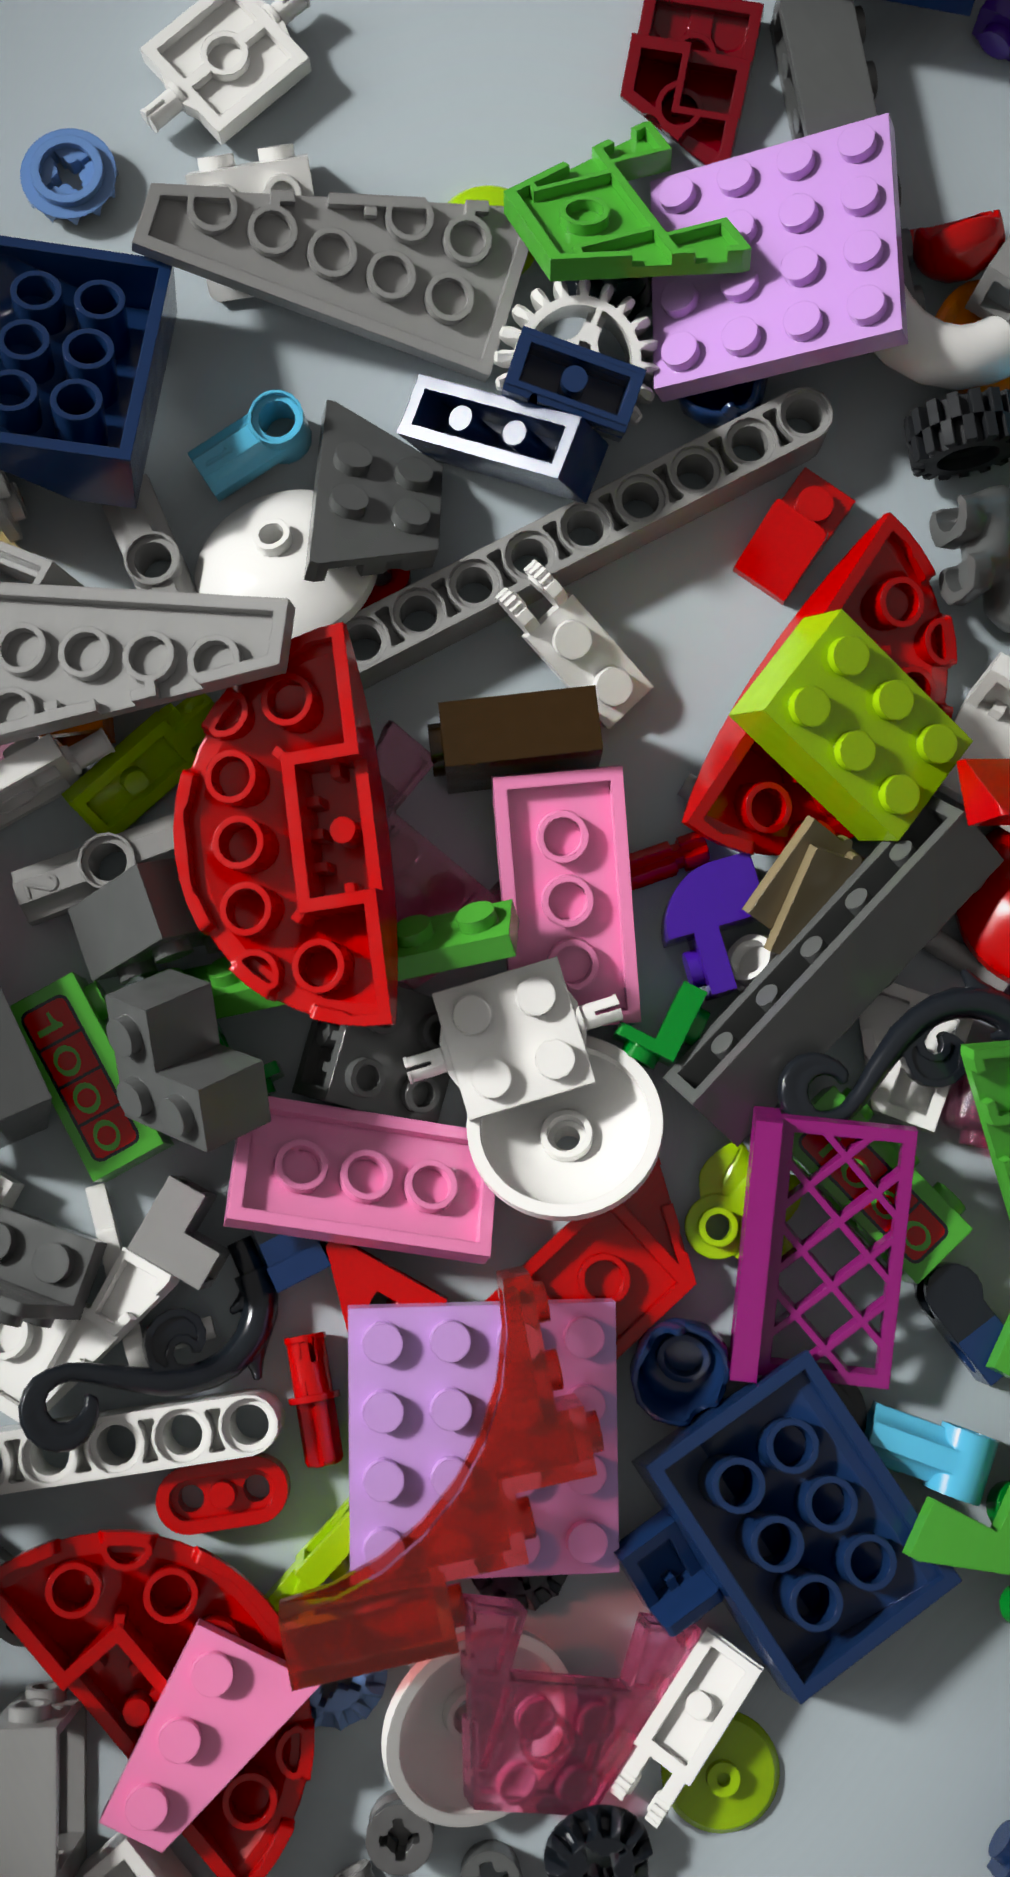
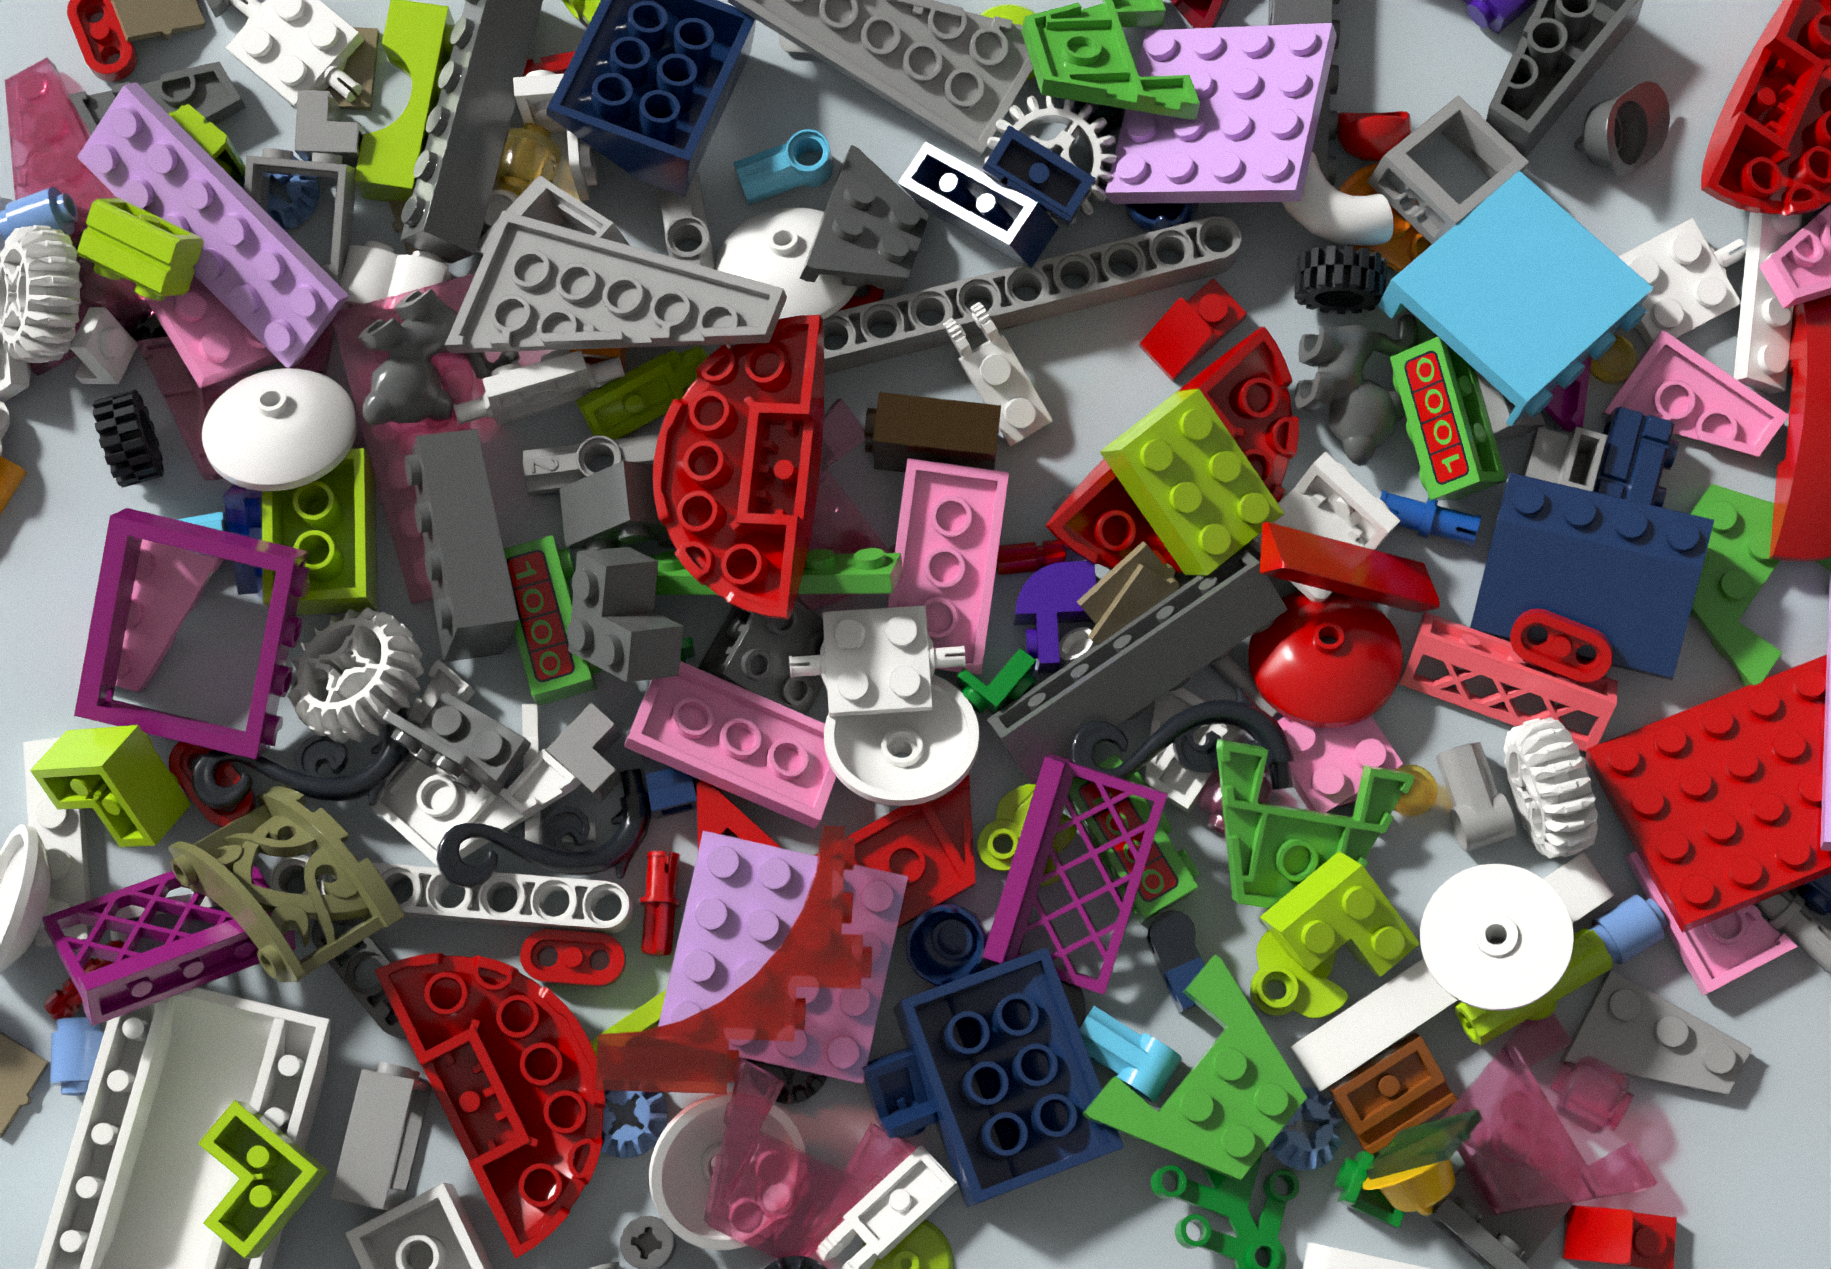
camera: 15 degrees right, 5 degrees down
(202, 1731) = (517, 1119): bright pink wing -> none

